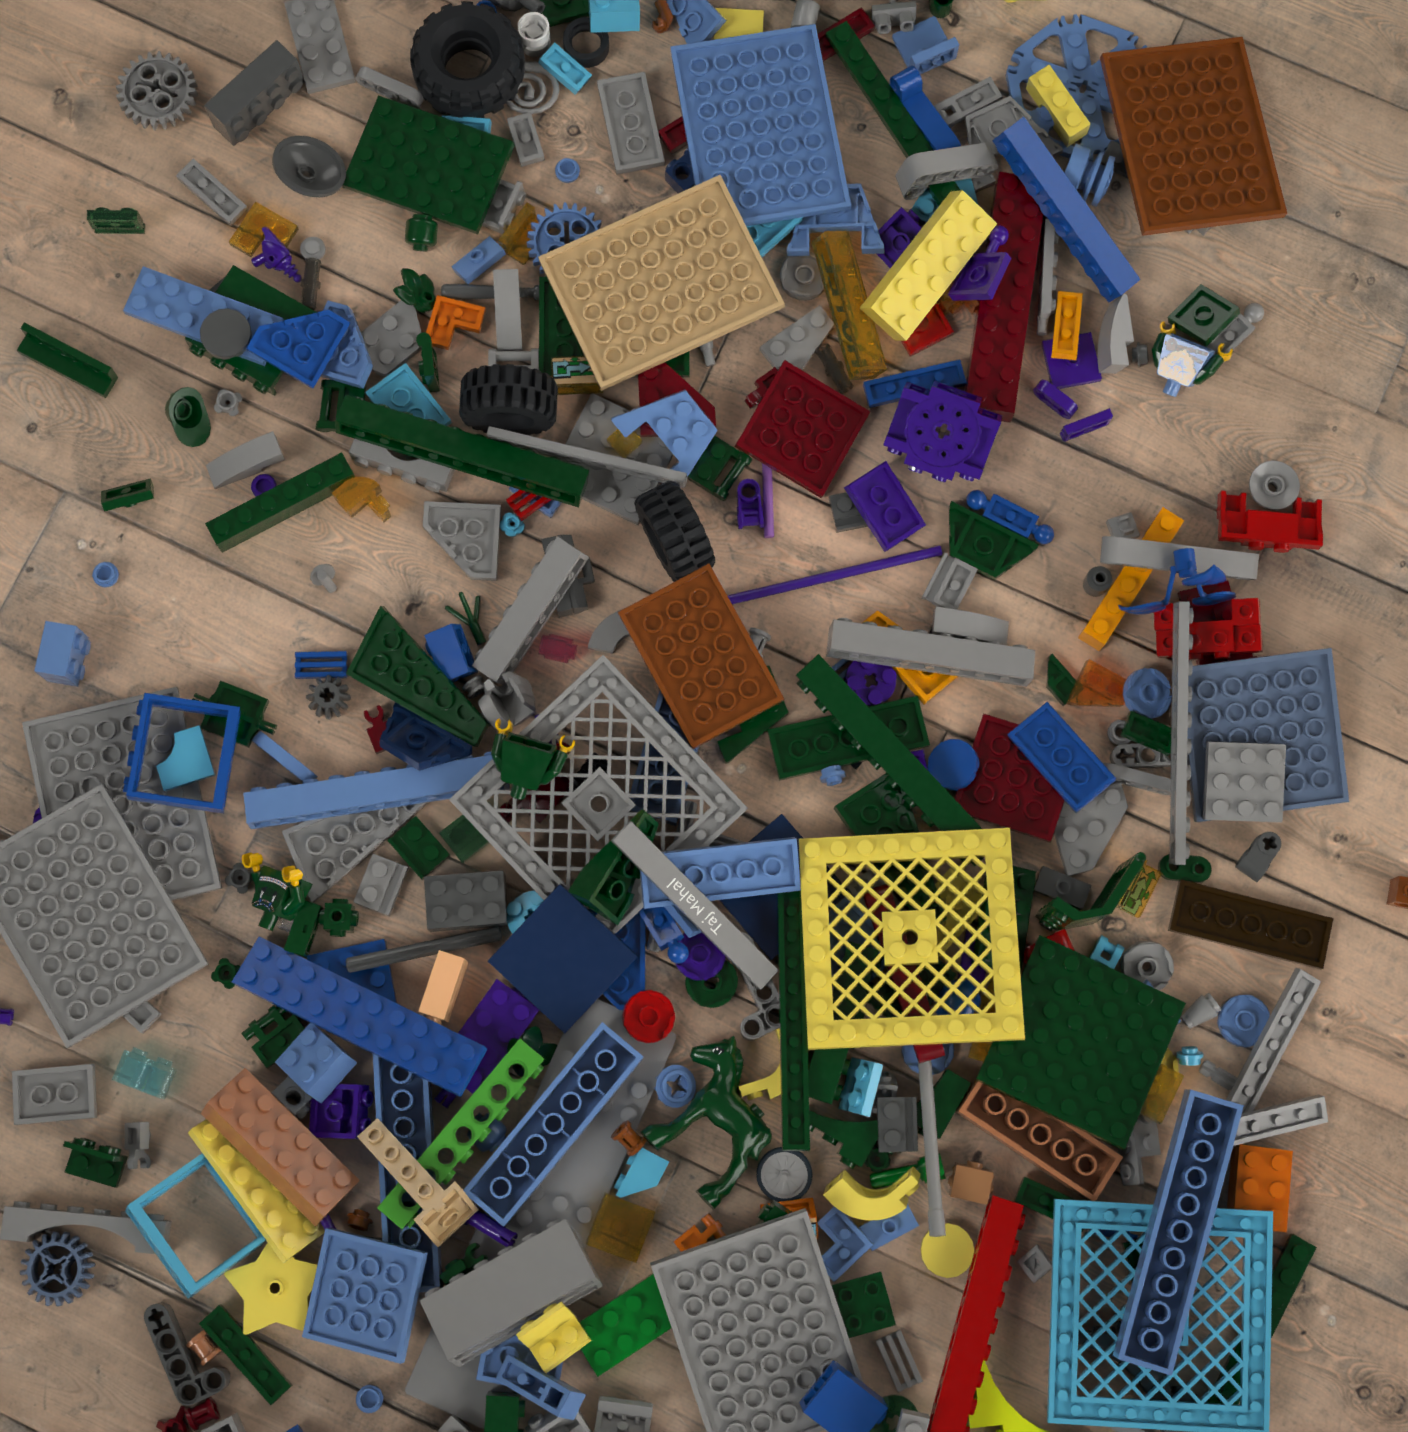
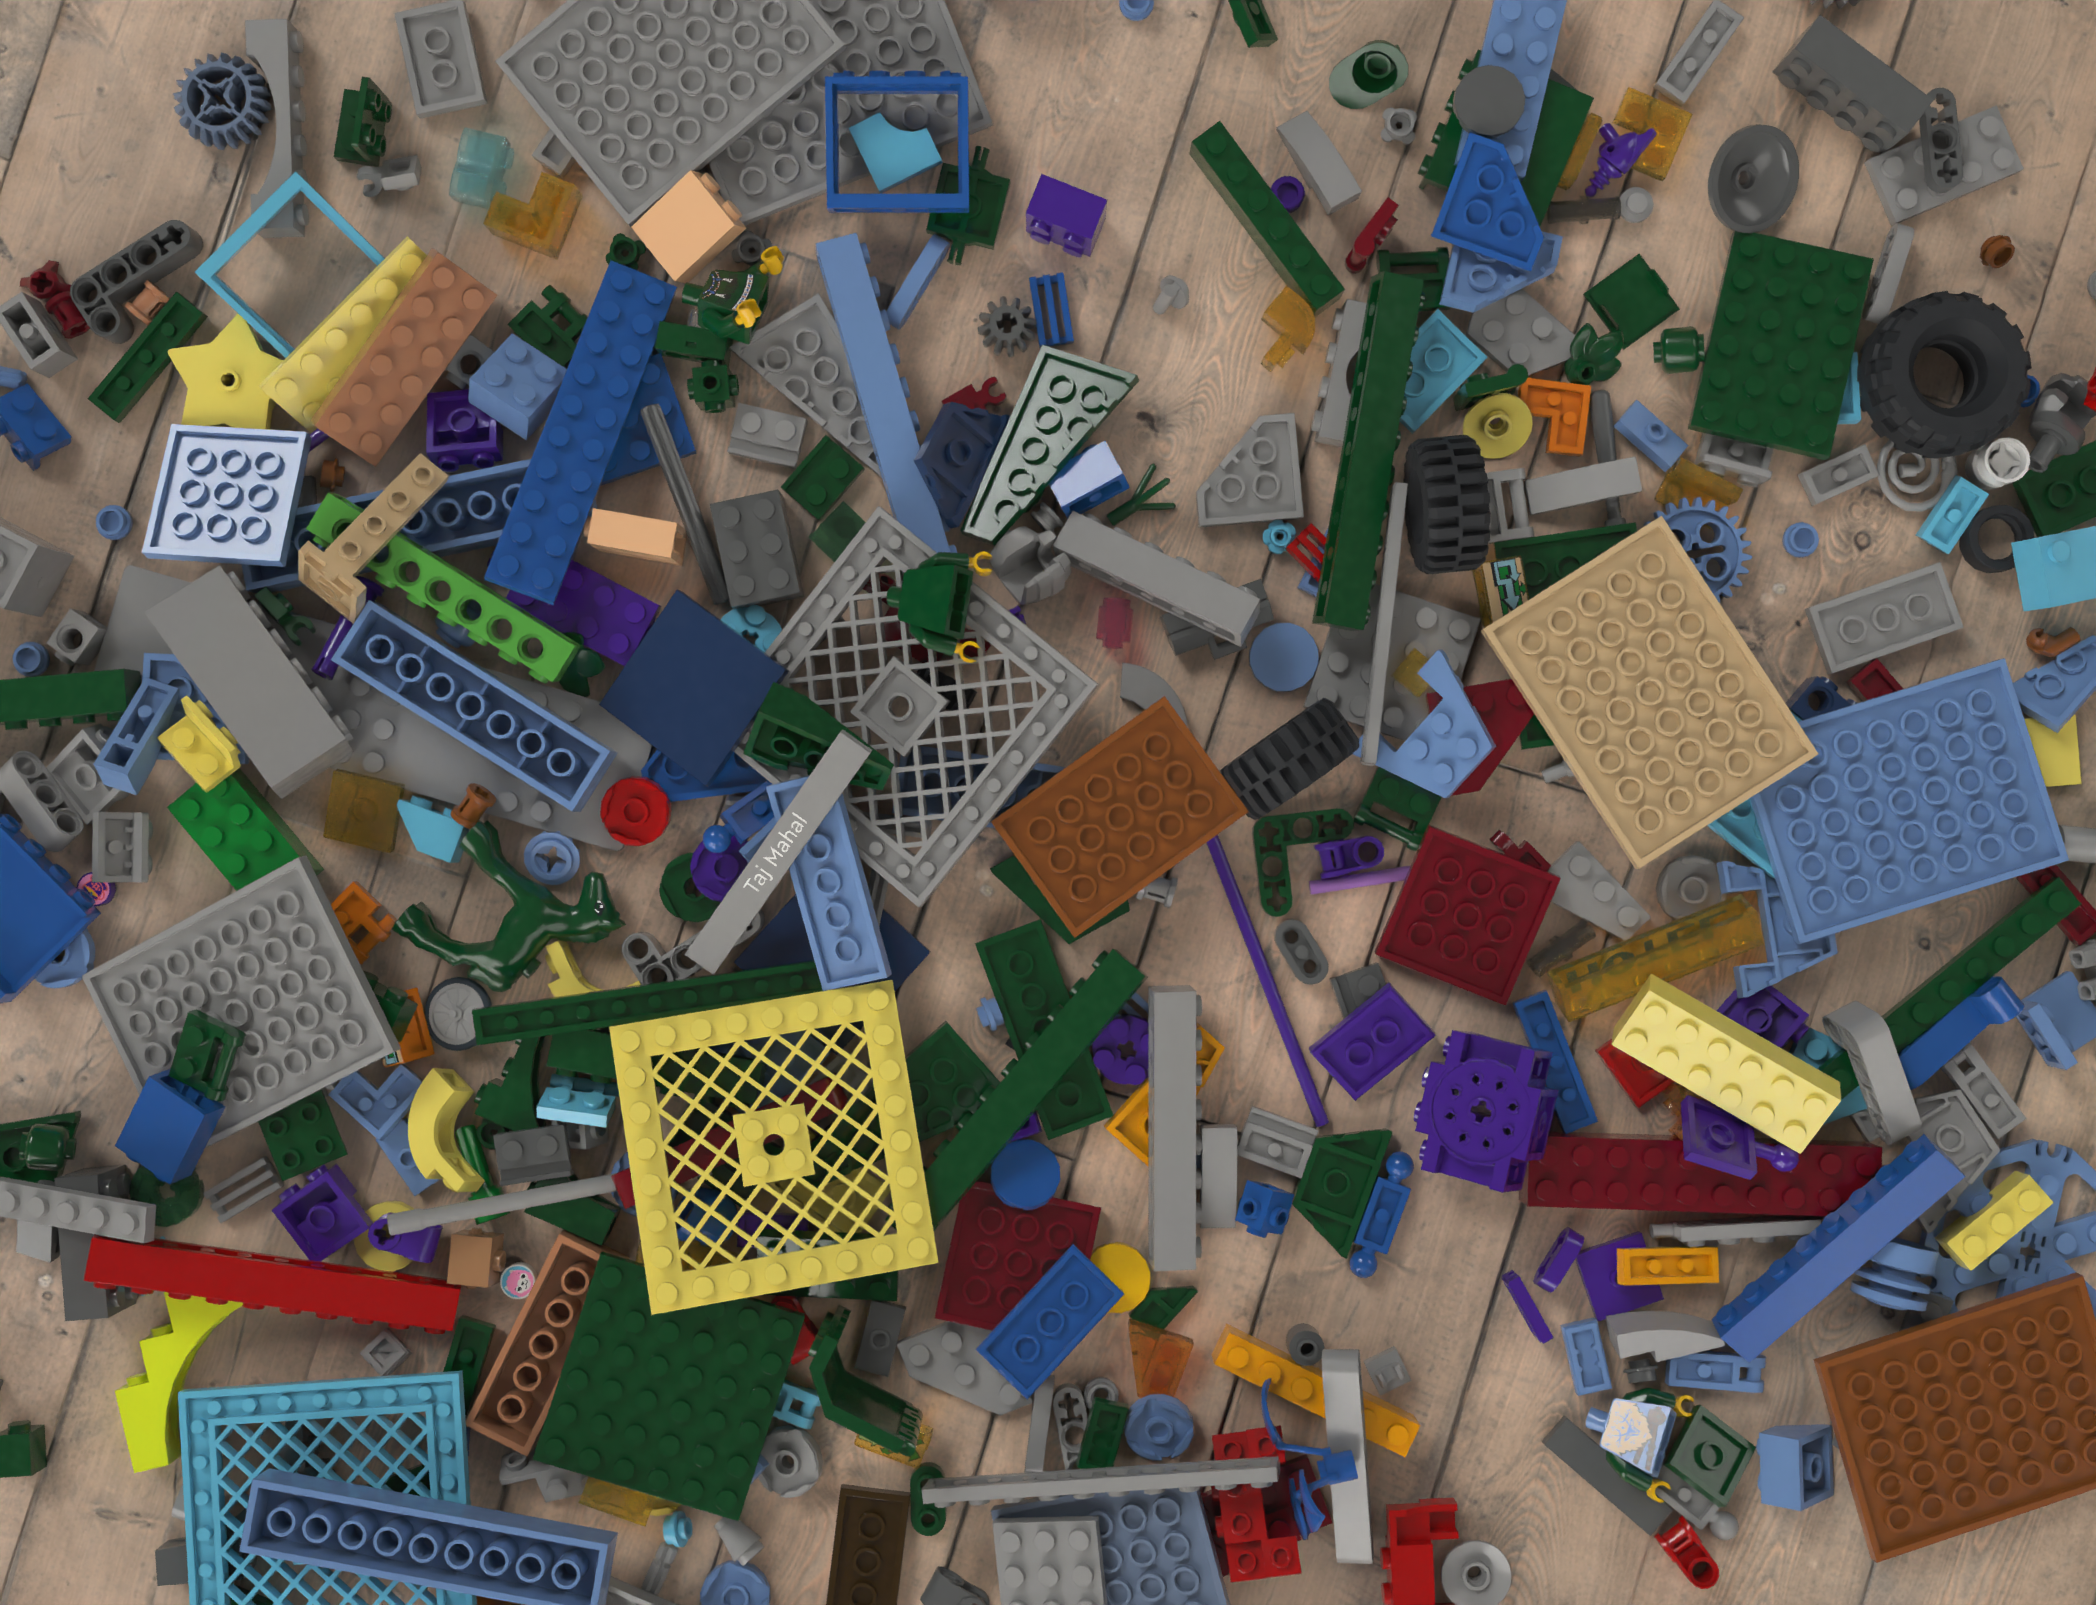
camera: 85 degrees right, 10 degrees up
(195, 1033) = (542, 222): none -> clear yellow brick
(215, 919) = (689, 226): none -> light nougat brick
(256, 642) = (1065, 216): none -> dark purple brick
(268, 278) = (1580, 151): none -> clear yellow tile
(309, 433) = (1374, 232): none -> dark red plate
(310, 48) = (1951, 129): none -> dark grey beam
(379, 260) = (1632, 300): none -> dark green piece
(385, 15) = (1997, 251): none -> dark orange plate
(461, 356) = (1506, 435): none -> light yellow dish
(599, 533) = (1283, 657): none -> medium blue tile
(731, 550) = (1285, 837): none -> dark green beam
(787, 1373) = (198, 1052): none -> dark green plate
(813, 548) = (1300, 951): none -> dark grey plate
(923, 1297) = (322, 1213): none -> dark purple plate
(955, 1226) = (414, 1245): none -> dark purple piece
(991, 1154) = (518, 1280): none -> tile
(996, 597) = (1264, 1208): none -> blue brick
(1030, 700) = (1127, 1270): none -> yellow tile
(1126, 390) = (1586, 1356): none -> medium blue plate
(1145, 304) = (1715, 1372): none -> medium blue plate
(1204, 395) = (1590, 1463): none -> dark grey tile
(1216, 259) = (1795, 1465): none -> medium blue slope
(1267, 340) = (1686, 1550): none -> red piece

